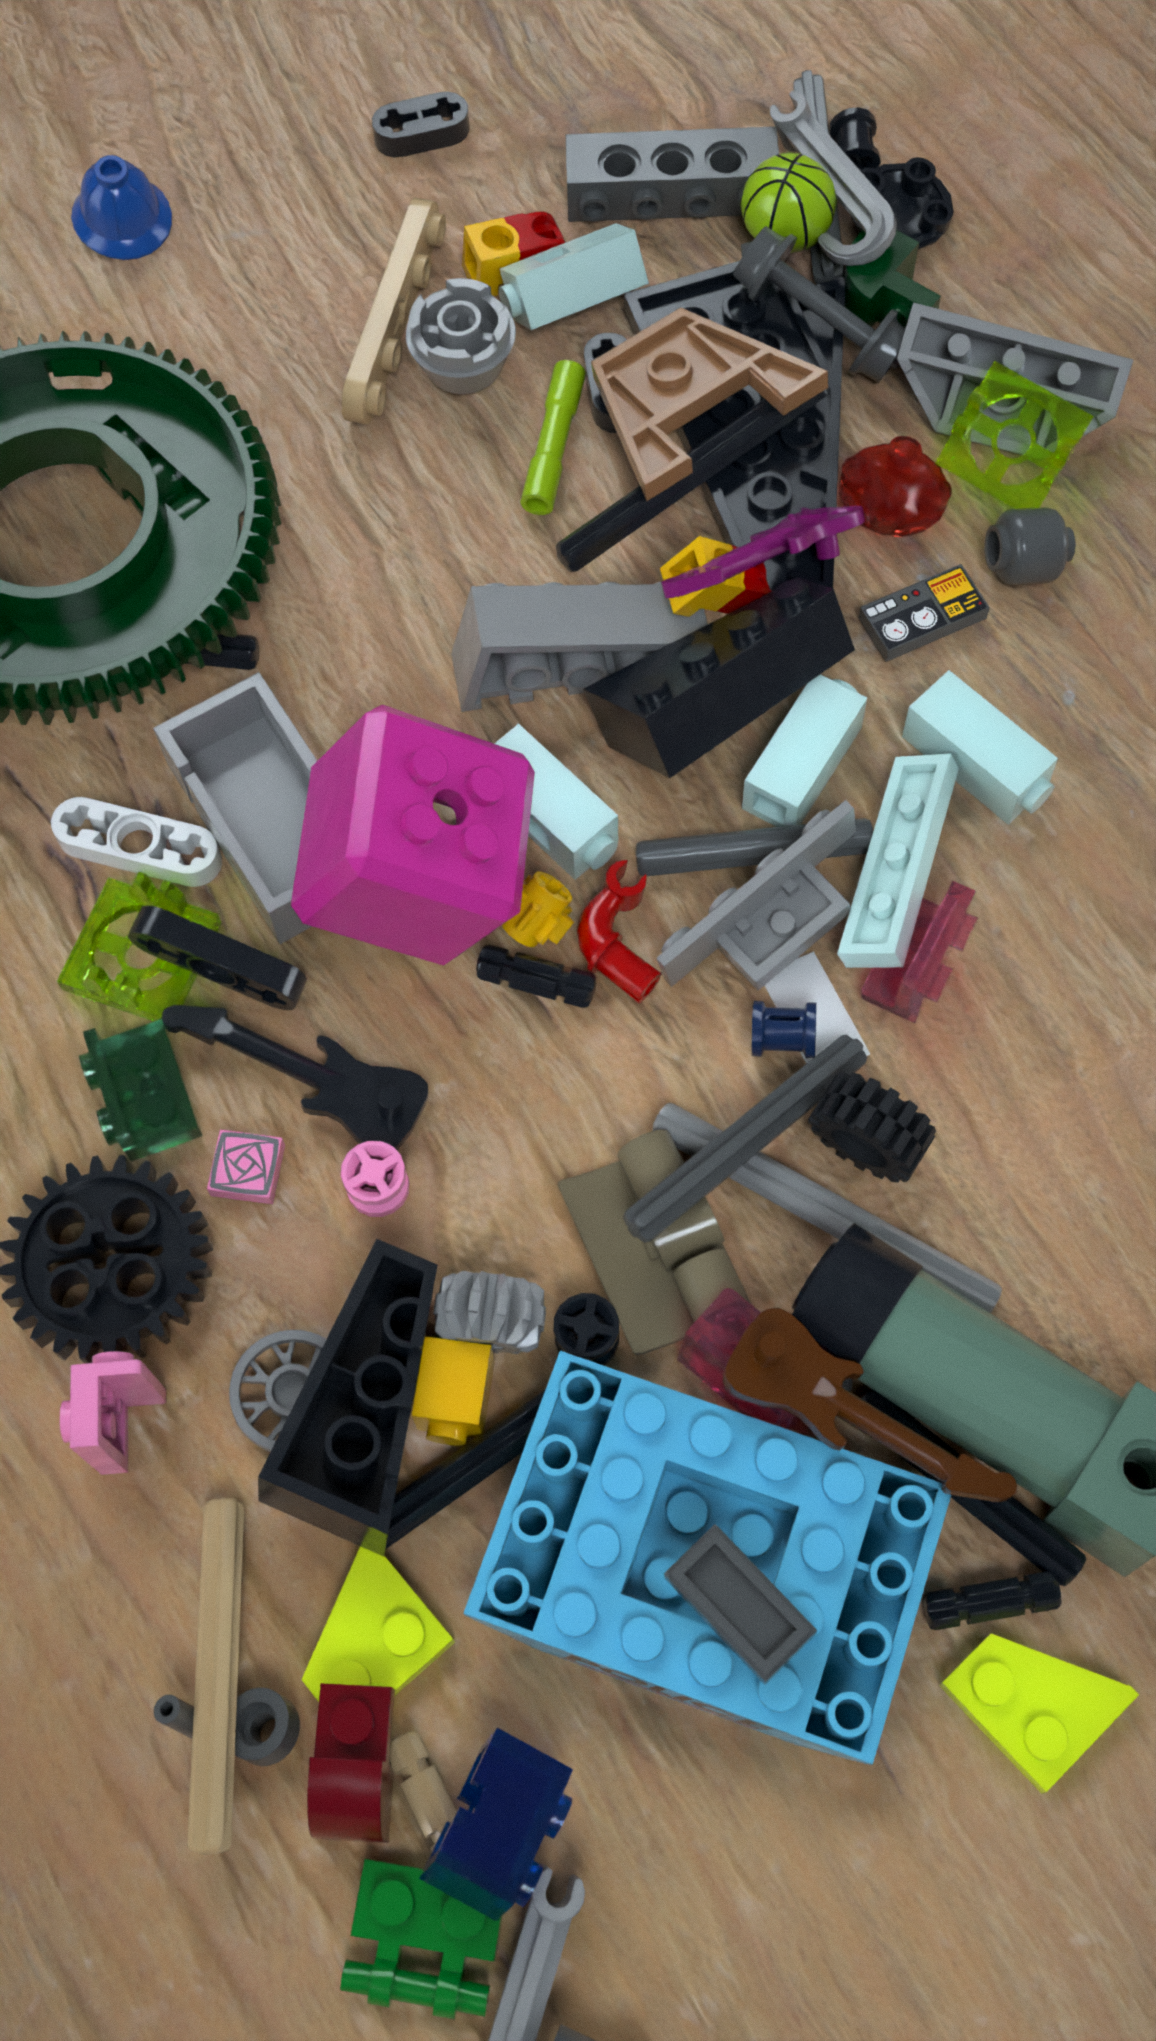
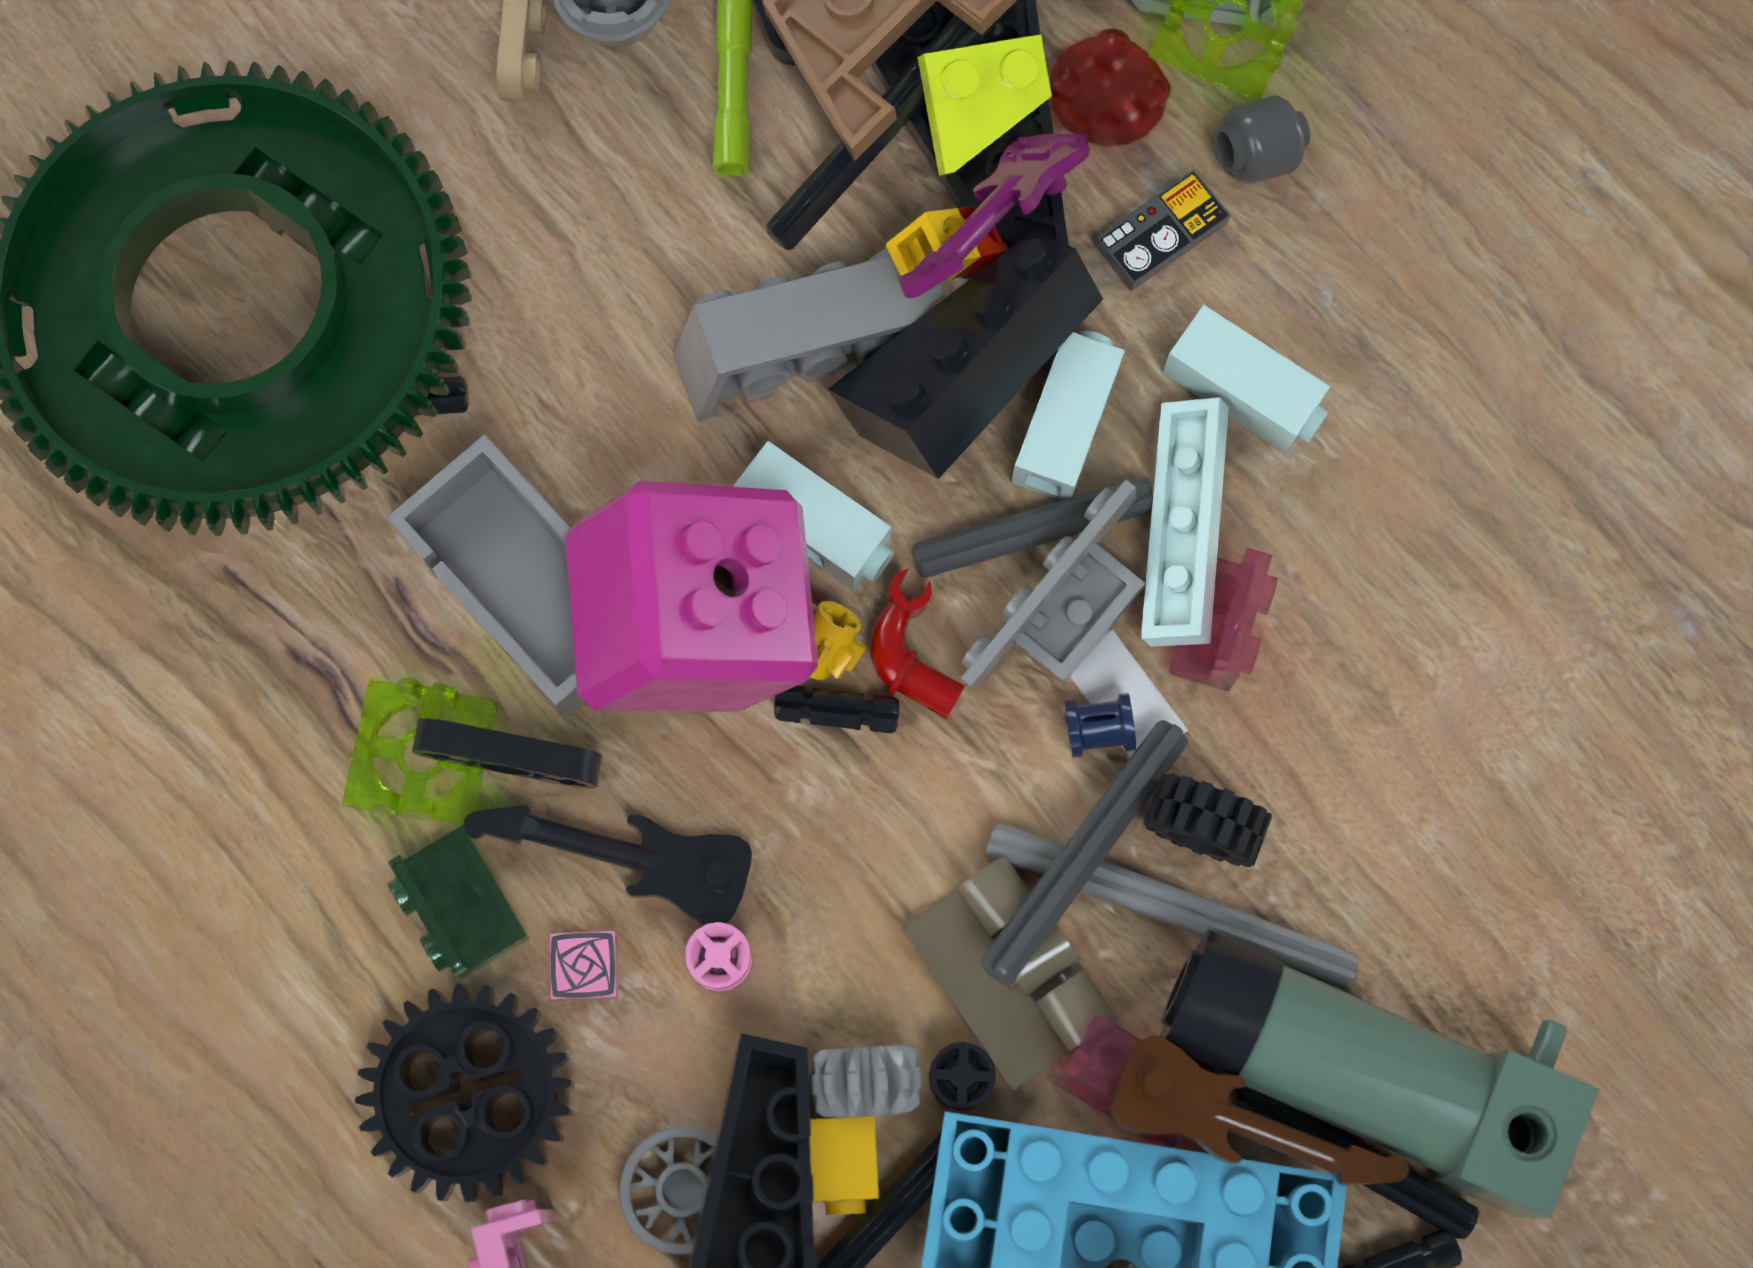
camera: 15 degrees left, 10 degrees up
(120, 821) = (343, 610): white beam -> none
(773, 464) = (980, 95): none -> neon yellow wing

